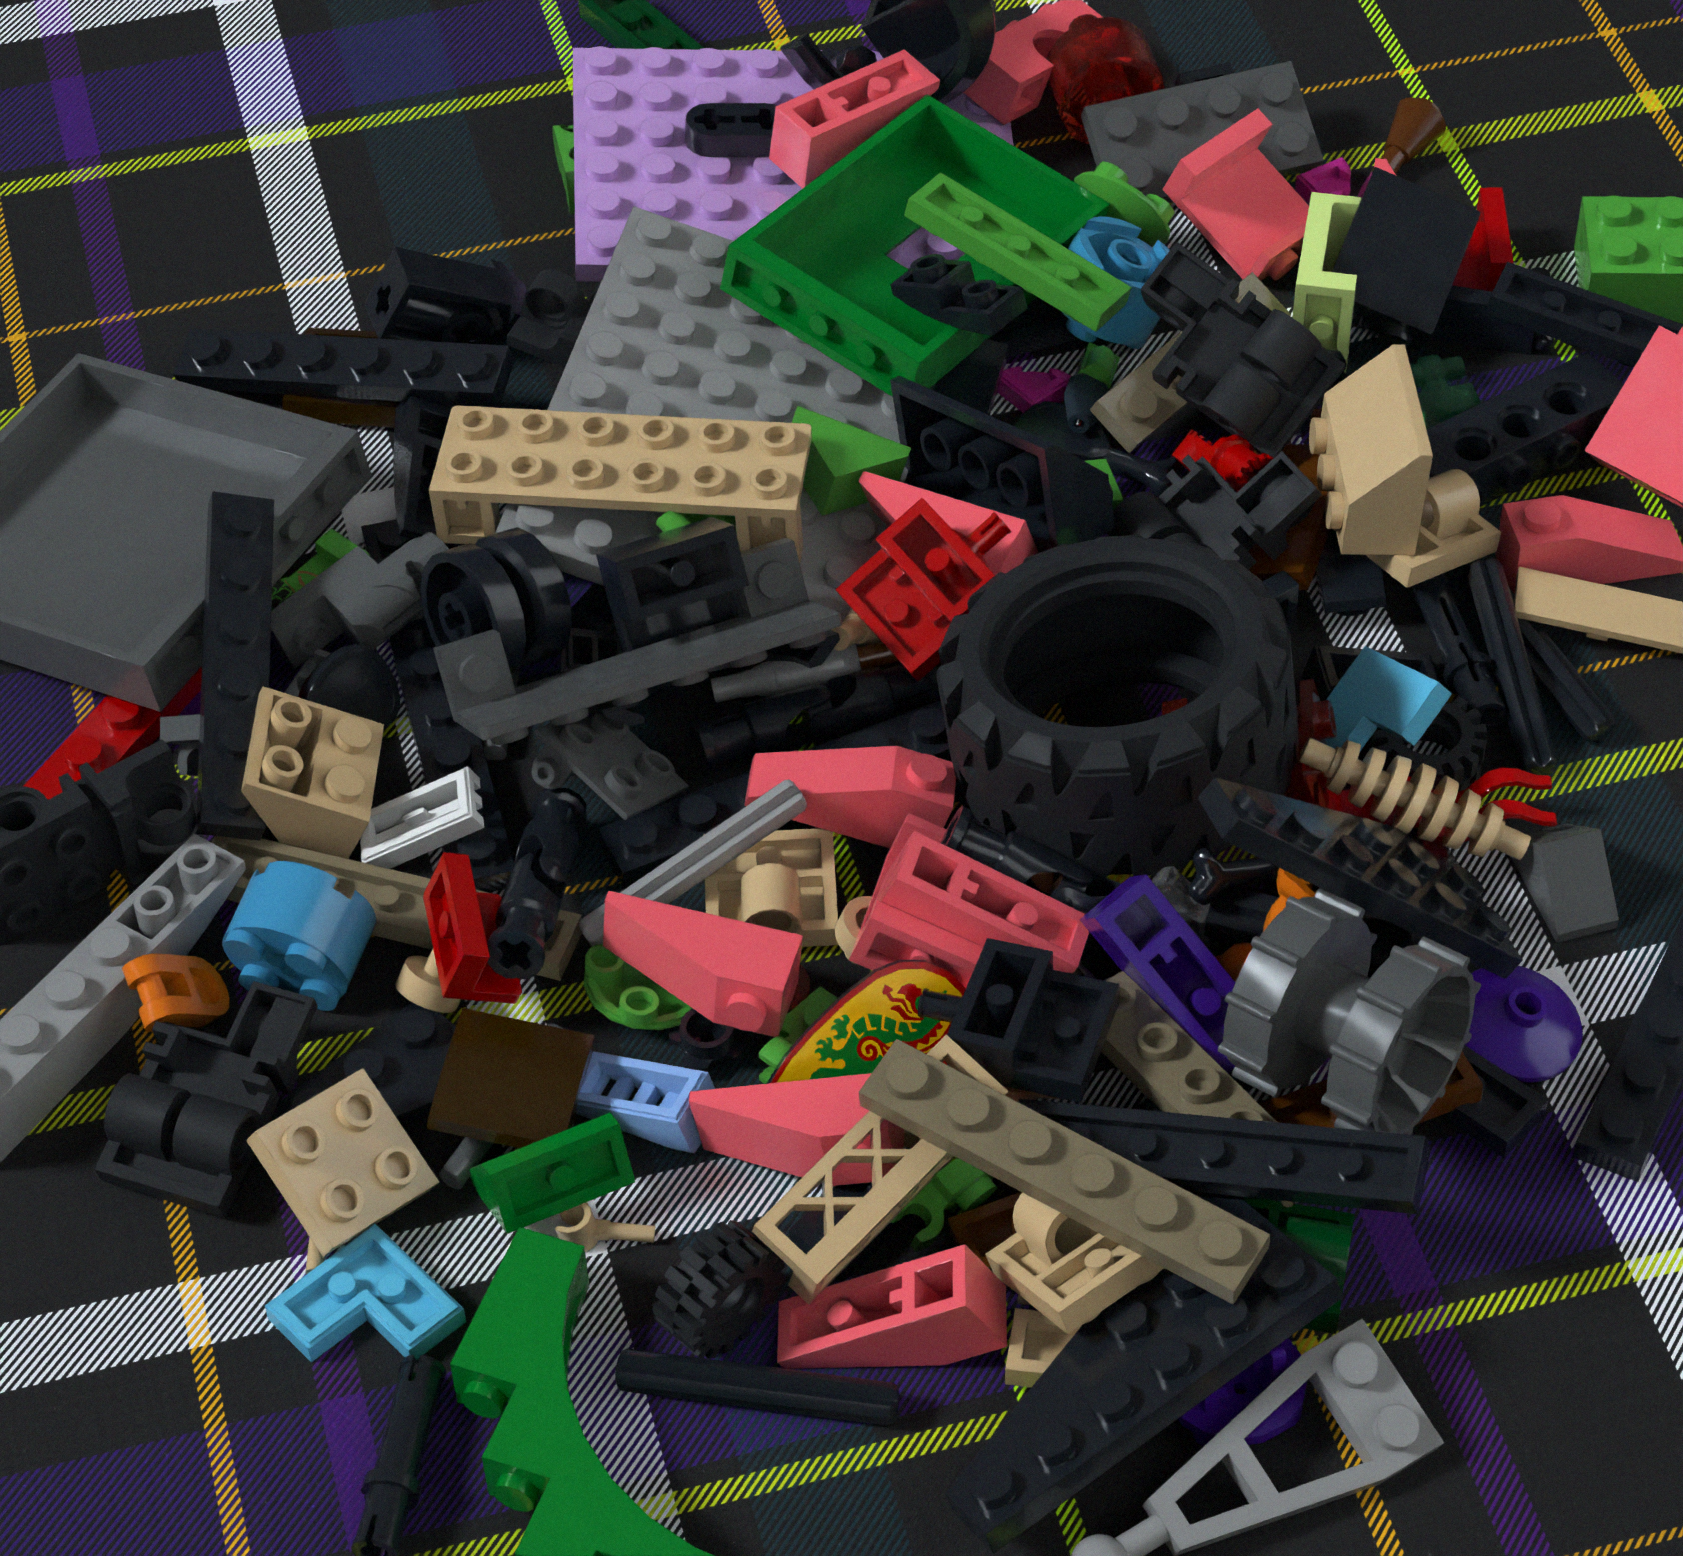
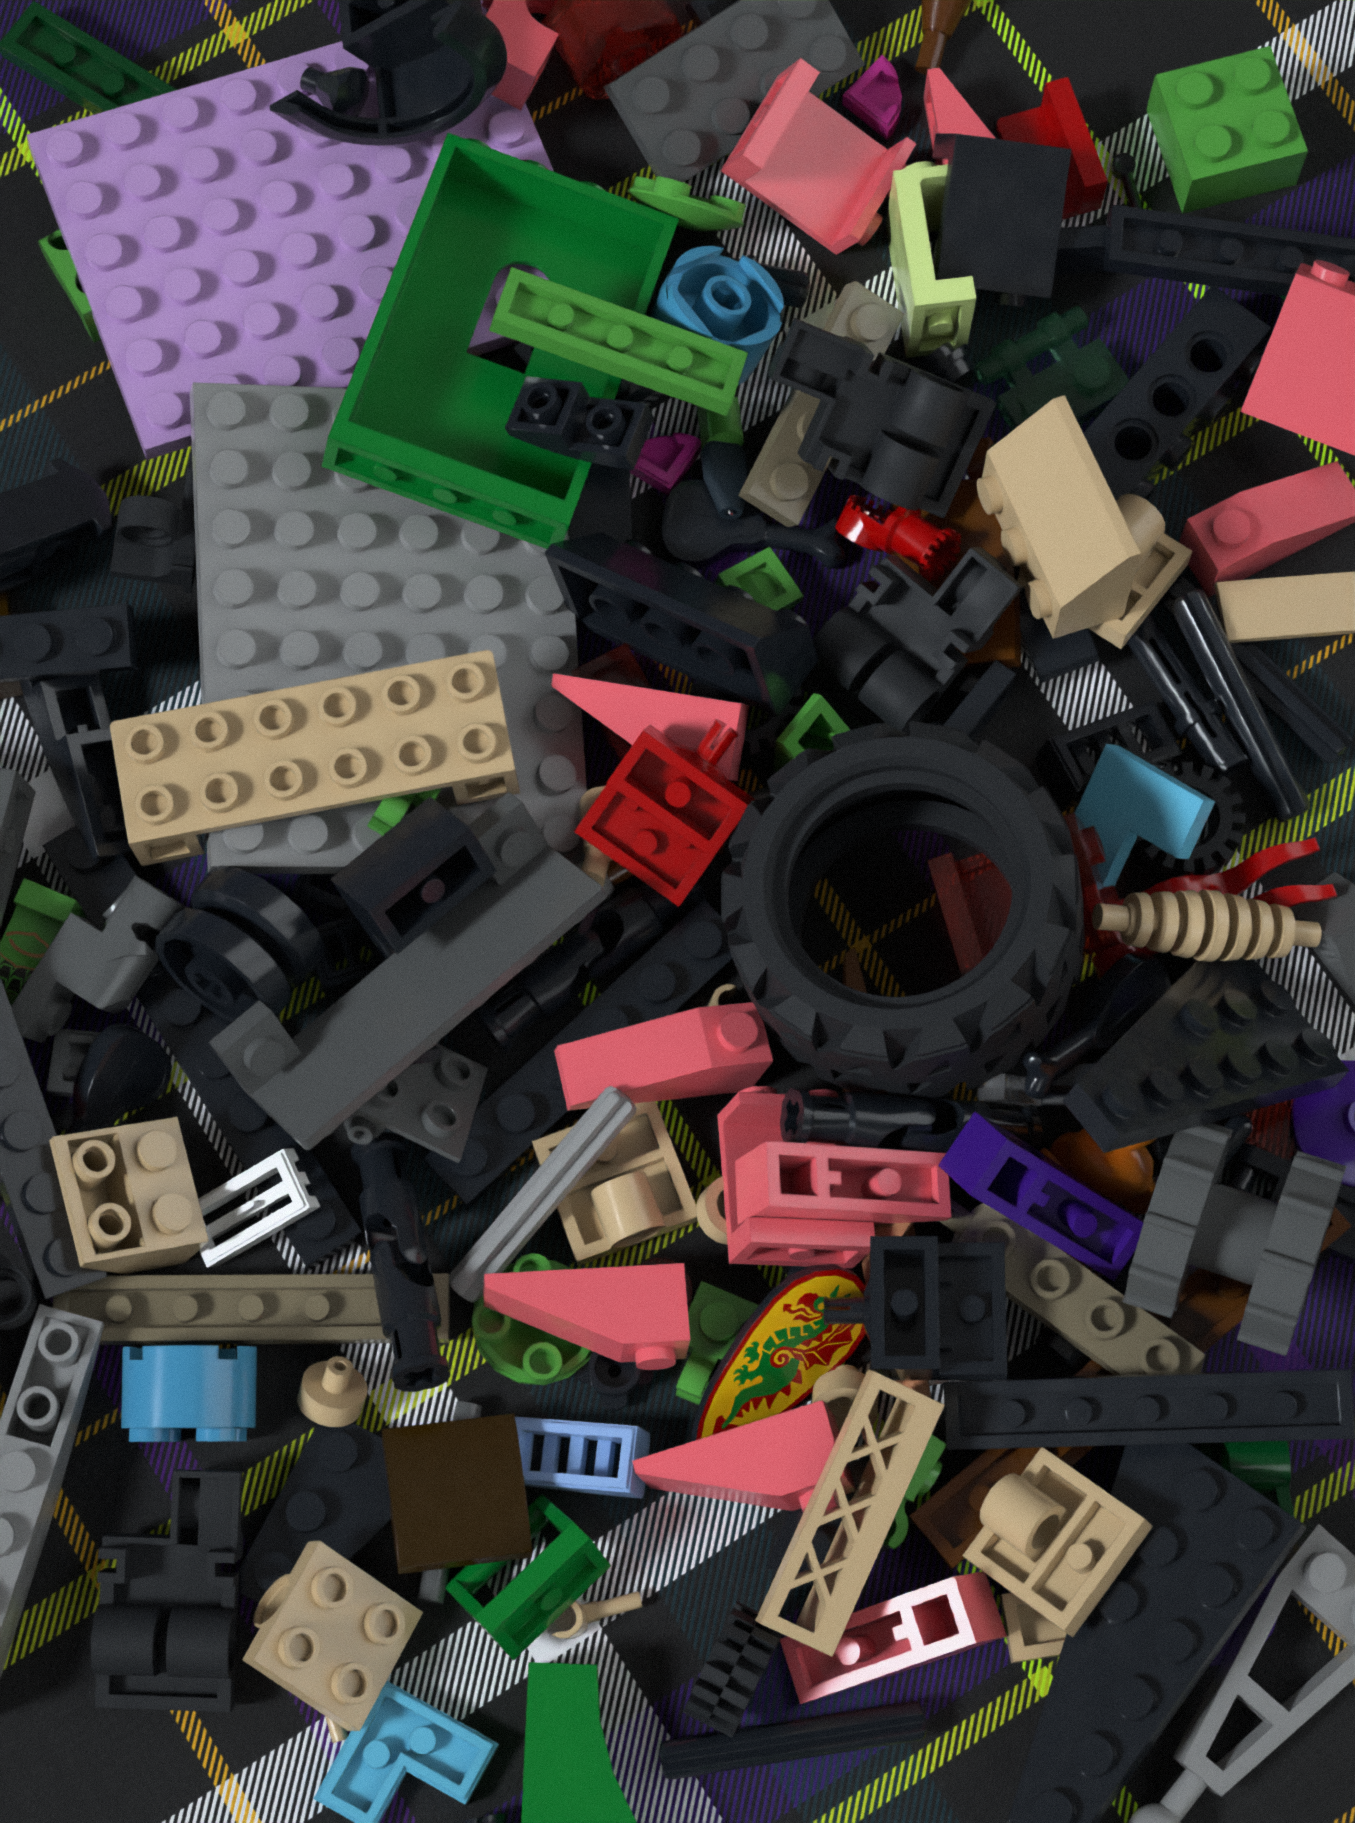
camera: 20 degrees left, 25 degrees up
(177, 990) = (107, 1476): orange plate -> none
(459, 932) = (354, 1350): red panel -> none
(730, 129) = (252, 216): black beam -> none
(840, 456) = (523, 653): bright green slope -> none
(841, 115) = (374, 180): coral slope -> none
(1065, 1171) = (1028, 1490): dark tan plate -> none

